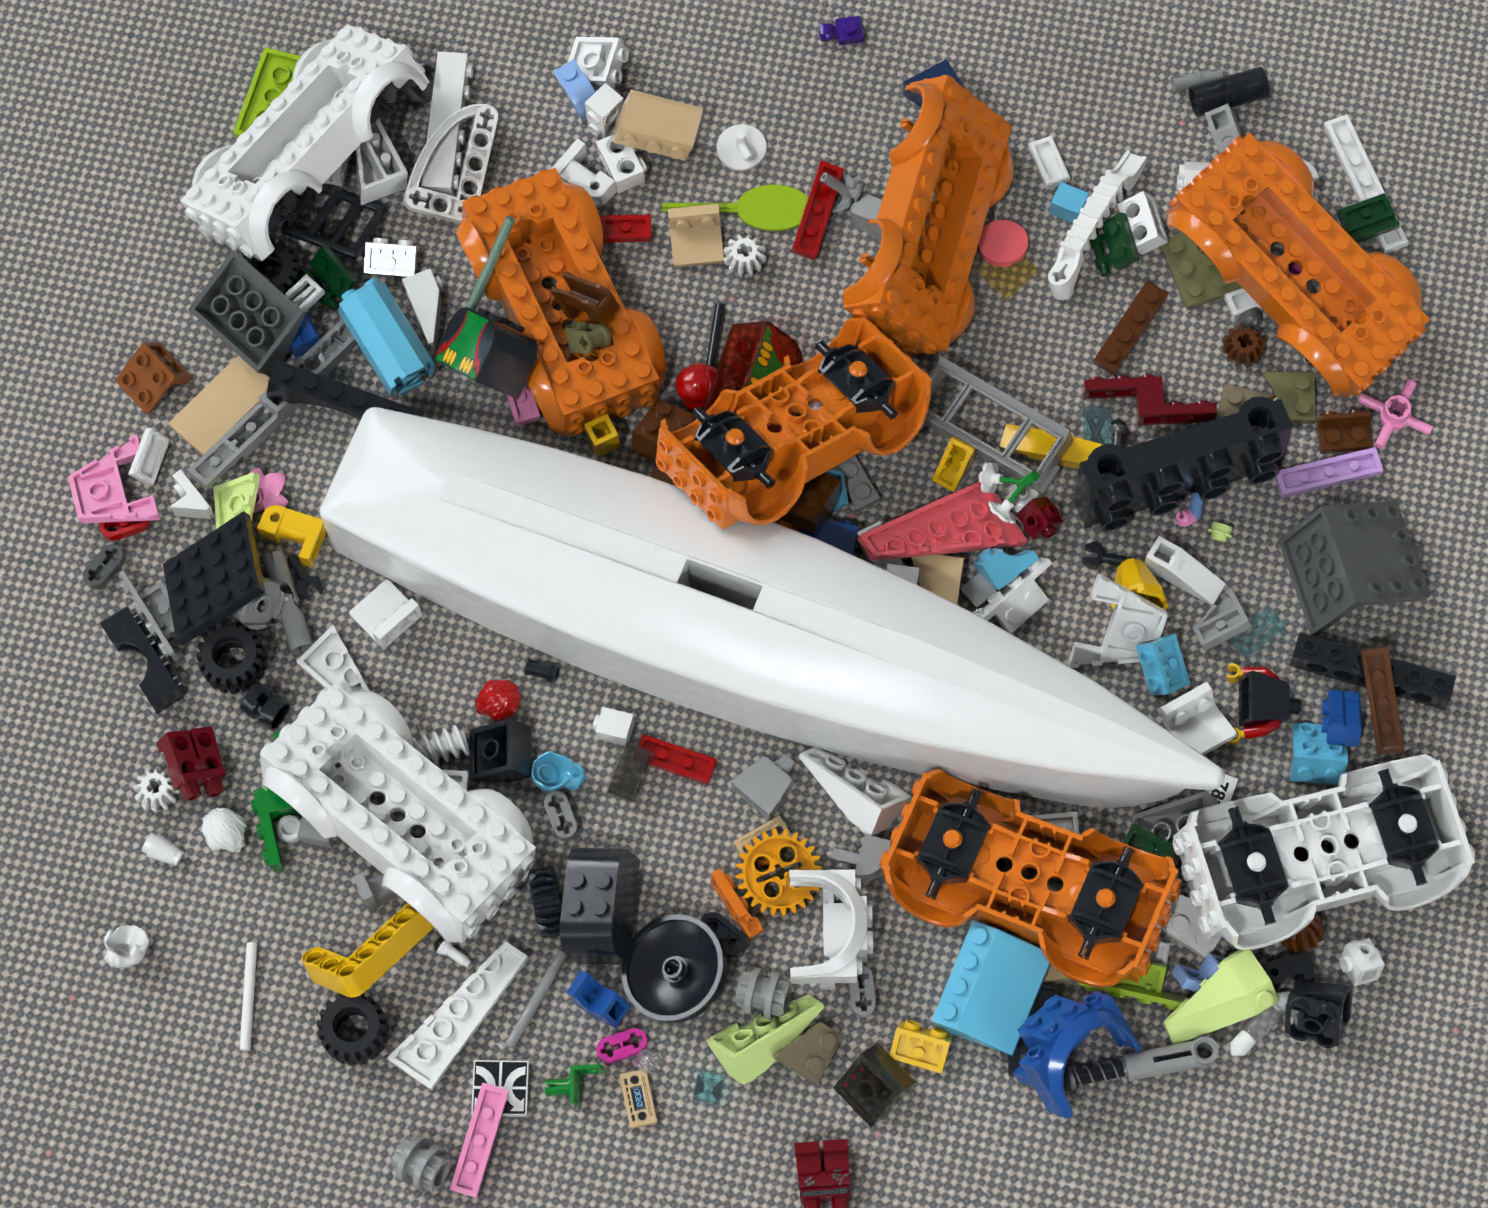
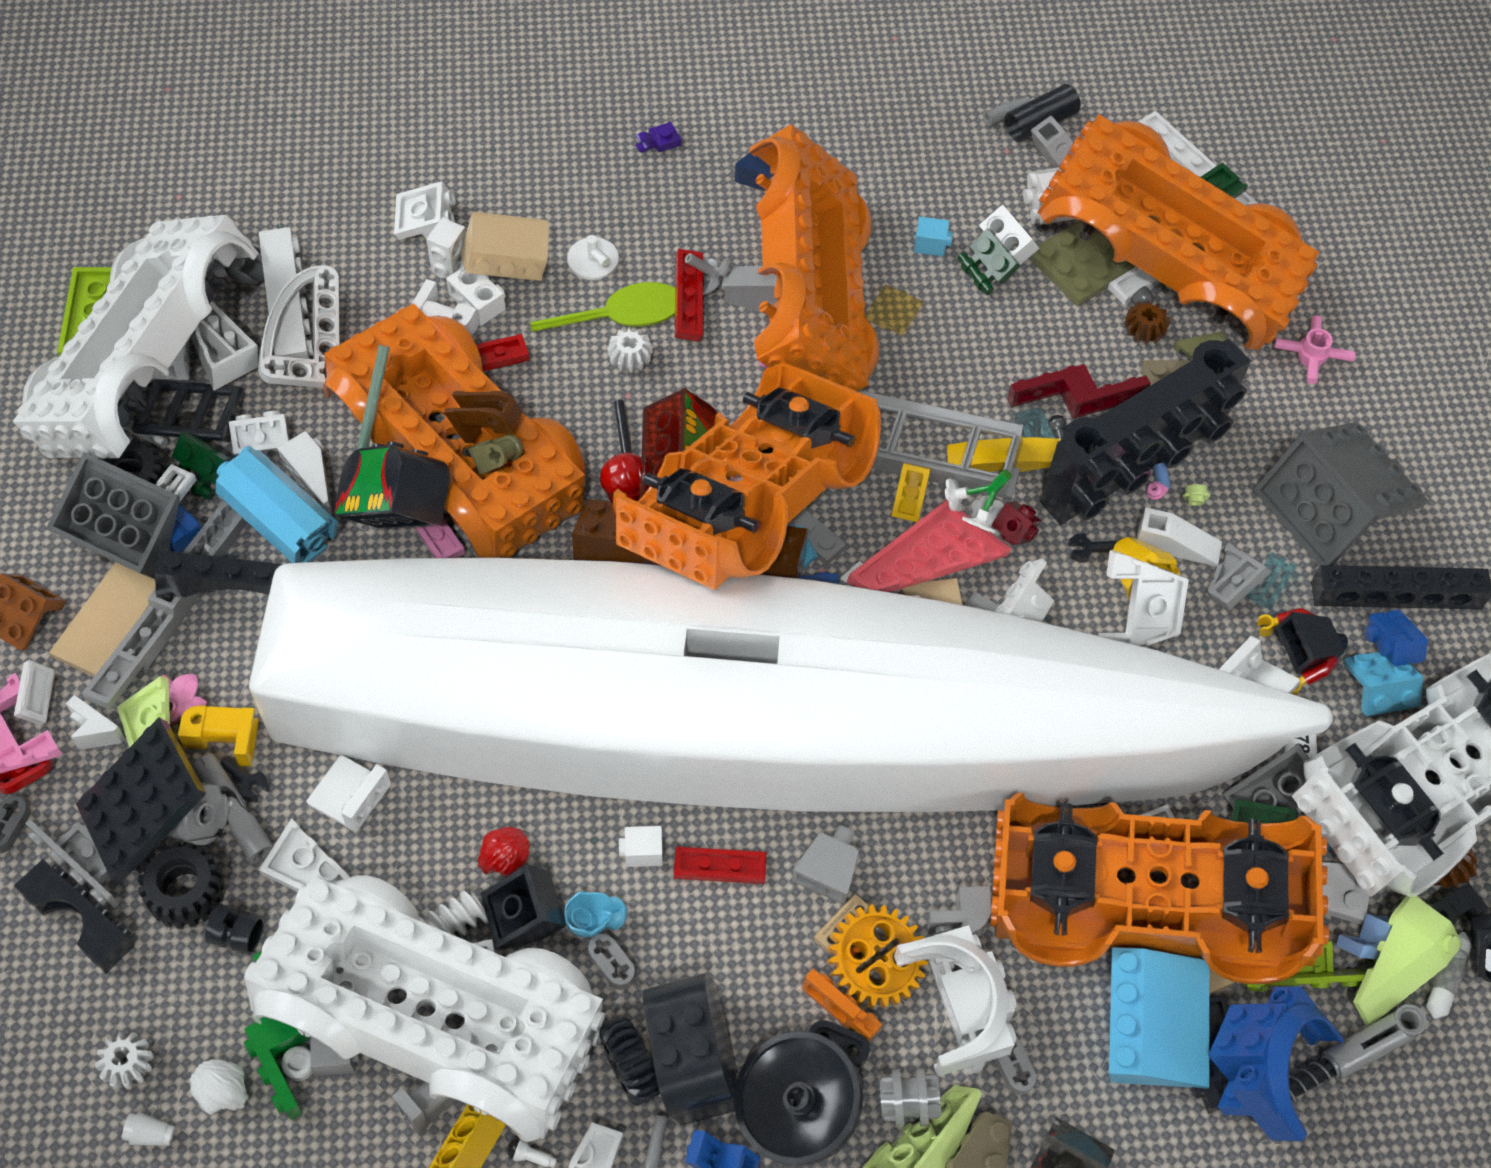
camera: 25 degrees left, 10 degrees down
(193, 762) = (162, 1015): dark red hips -> none
(542, 670) = (543, 807): black pin -> none
(575, 86) = (412, 234): light blue brick -> none
(602, 435) = (537, 545): yellow brick -> none
(630, 772) = (676, 890): clear smoke hinge -> none
(696, 235) = (573, 341): tan bracket -> none
(861, 798) = (941, 853): white wedge -> none
(921, 1046) = (1103, 1107): yellow bracket -> none
(1001, 568) = (997, 579): medium azure arch -> none
(1003, 243) = (883, 285): coral tile -> none
(1048, 162) = (896, 208): white tile -> none
(1105, 195) = (956, 259): white piece -> none
(1130, 328) = (1032, 333): reddish brown plate -> none
(1163, 665) = (1196, 633): medium azure bracket -> none
(1329, 472) = (1275, 416): lavender plate -> none
(1344, 431) = (1273, 377): reddish brown bracket -> none
(1382, 700) = (1430, 609): reddish brown plate -> none

